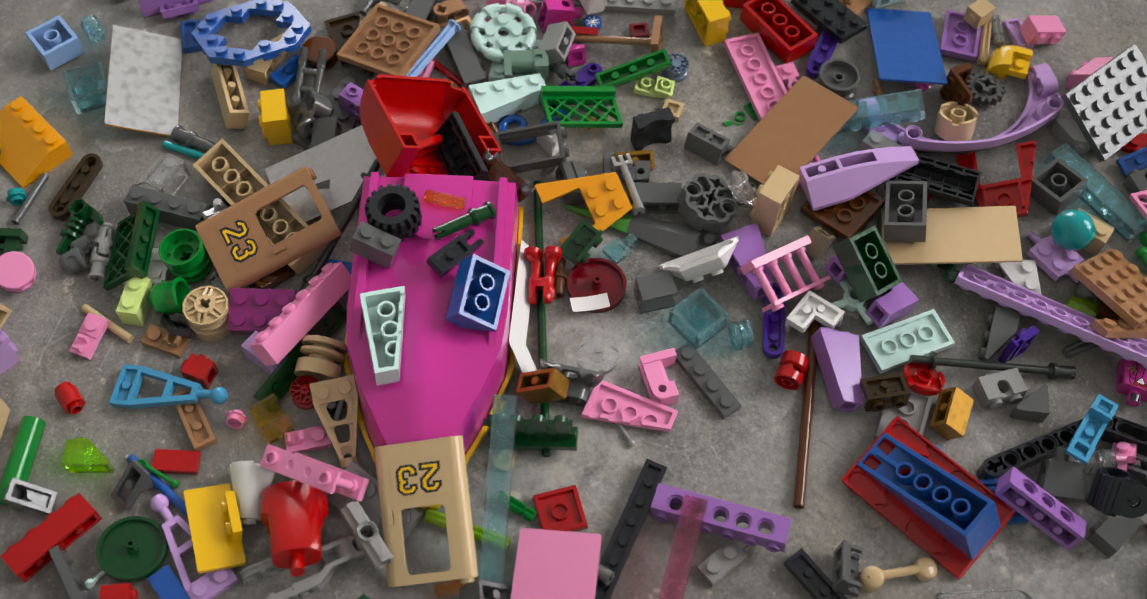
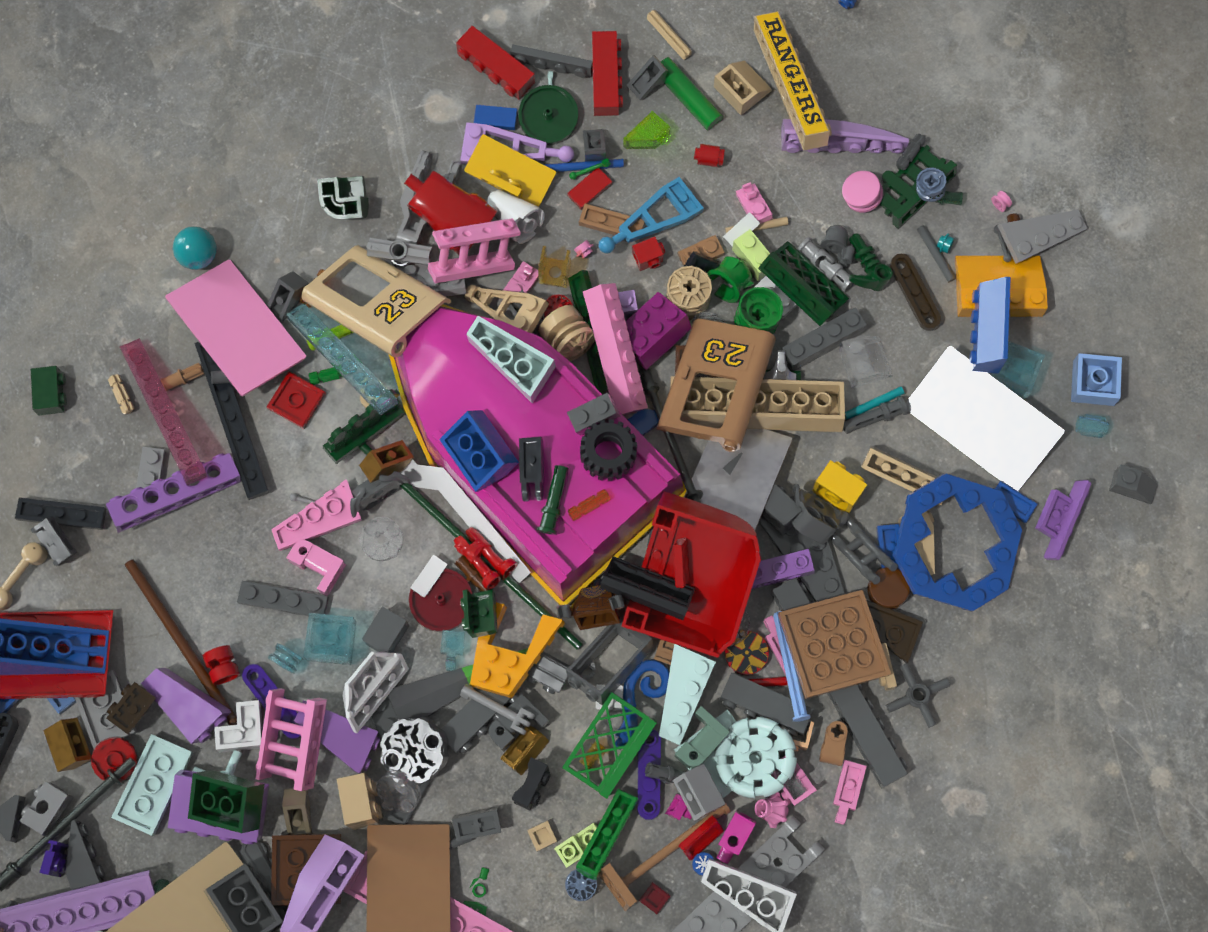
camera: 140 degrees right, 15 degrees up
(65, 99) = (990, 325): none -> slope
(120, 325) = (741, 227): none -> white sticker

